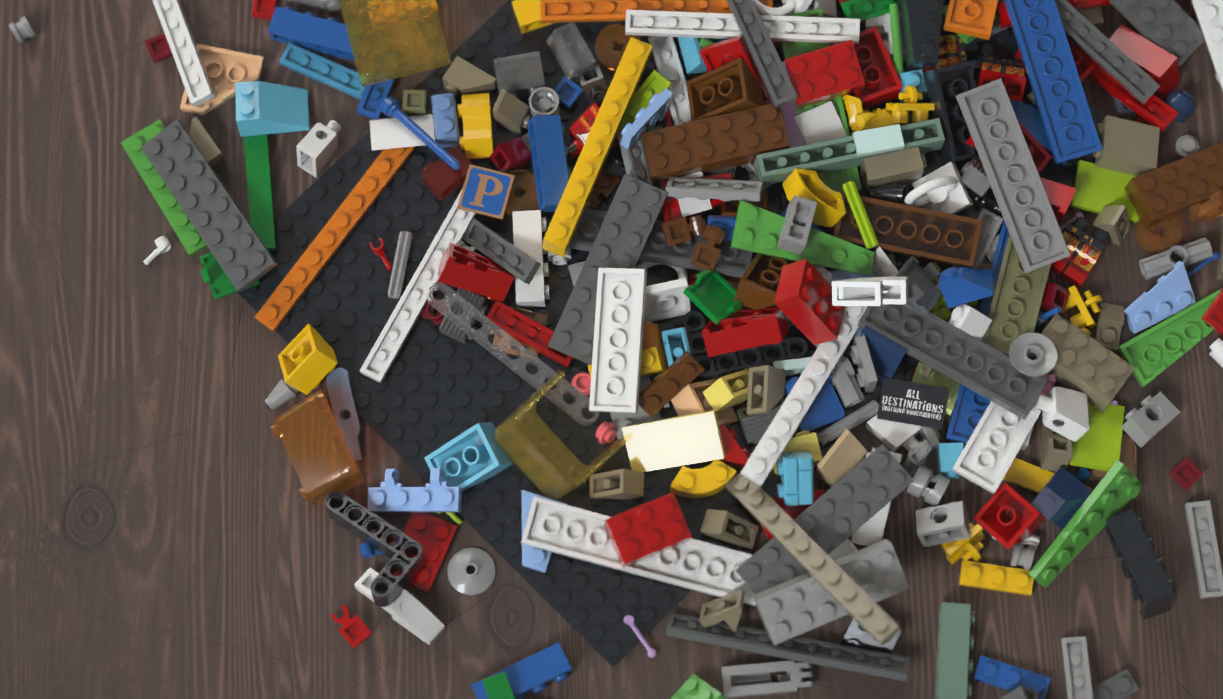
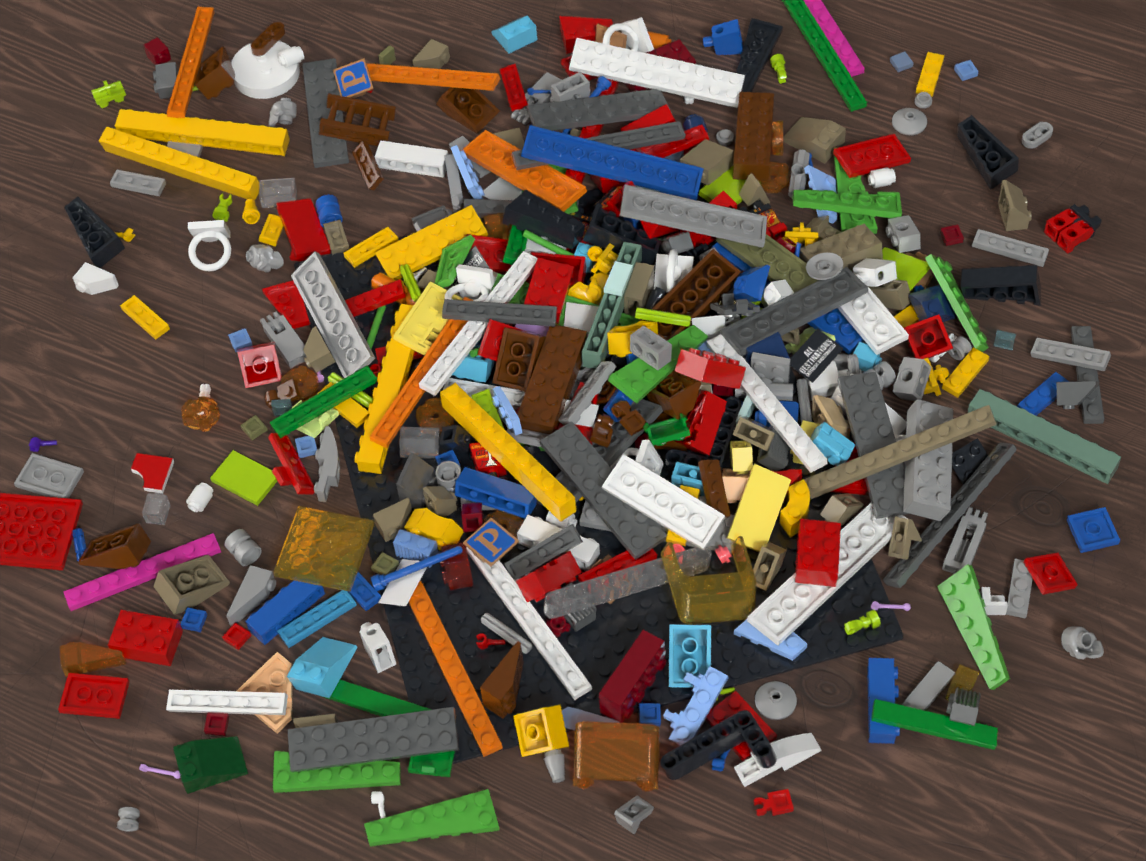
camera: 60 degrees left, 20 degrees down
(92, 44) = (145, 768): none -> lavender hinge
(117, 66) = (209, 762): none -> dark green slope
(181, 328) = (451, 817): none -> bright green wing
(267, 495) = (633, 813): none -> light grey slope
(334, 296) = (502, 686): none -> reddish brown slope
(385, 455) = (650, 713): none -> blue plate
(406, 417) = (632, 677): none -> dark red brick
(609, 624) = (855, 625): none -> lime piece
(870, 291) = (727, 326): white slope -> none
(1062, 601) = (1004, 340): none -> clear light blue tile
(1169, 357) = (880, 205): none -> bright green wing

